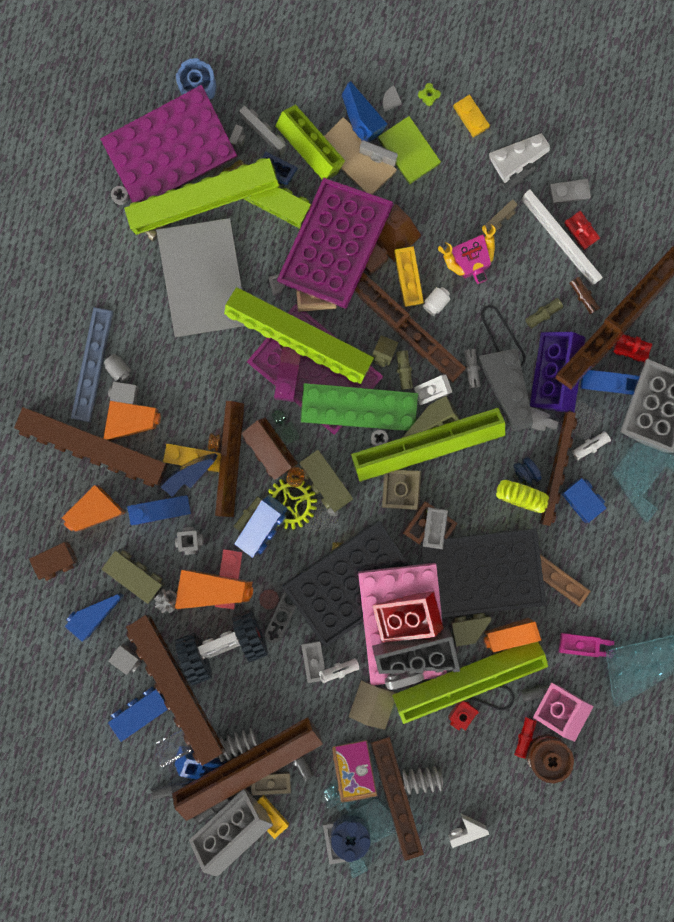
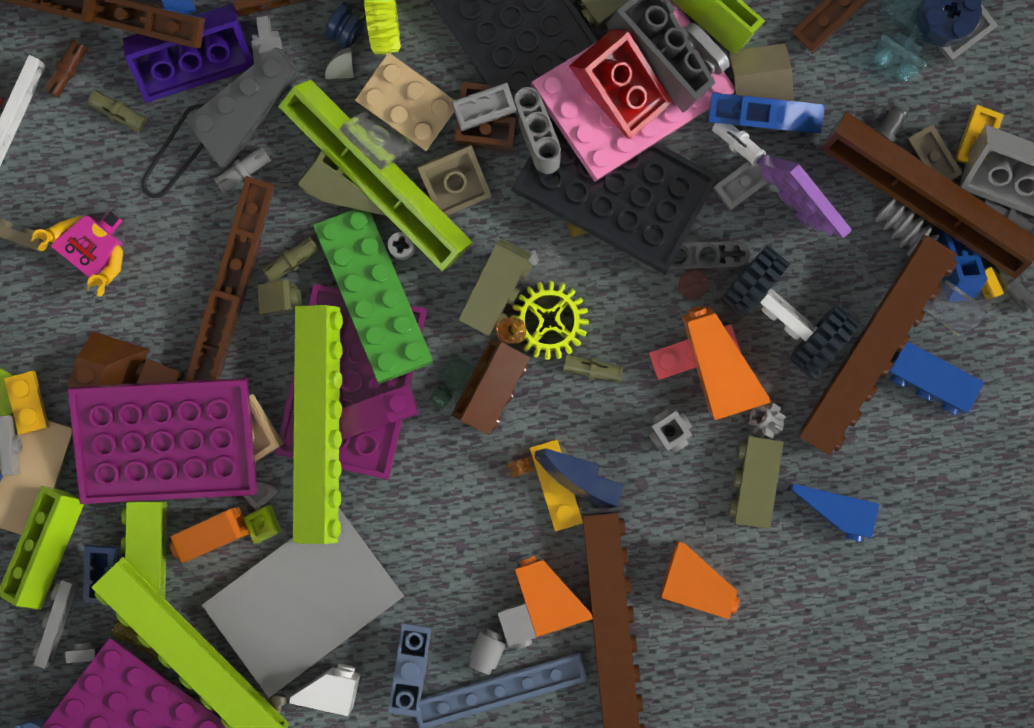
camera: 115 degrees left, 0 degrees up
(54, 560) = (793, 601): reddish brown brick -> none
(125, 659) = (873, 434): light grey brick -> none
(129, 318) = (410, 670): none -> sand blue slope
(141, 265) = (330, 691): none -> white slope
(159, 510) = (650, 493): blue slope -> none
(173, 776) = (992, 286): none -> yellow tile
(229, 459) = (532, 434): reddish brown plate -> none
(258, 276) = (262, 524): none -> lime tile
(261, 526) = (601, 341): brick -> none
(267, 243) = (209, 535): none -> orange slope
(285, 691) = (802, 193): none -> medium lavender plate
(347, 695) = (766, 113): none -> blue slope
(354, 771) = (860, 53): piece -> none
(398, 176) = (26, 402): none -> yellow plate
(408, 276) = (159, 318): yellow plate -> none
(414, 553) = (537, 118): none -> light grey beam
(433, 389) = (298, 206): white slope -> none
(436, 301) = (173, 263): white brick -> none
(450, 456) = (376, 139): none -> clear tile
(463, 485) = (406, 101): none -> tan plate
(505, 457) = (340, 65): none -> light grey tile

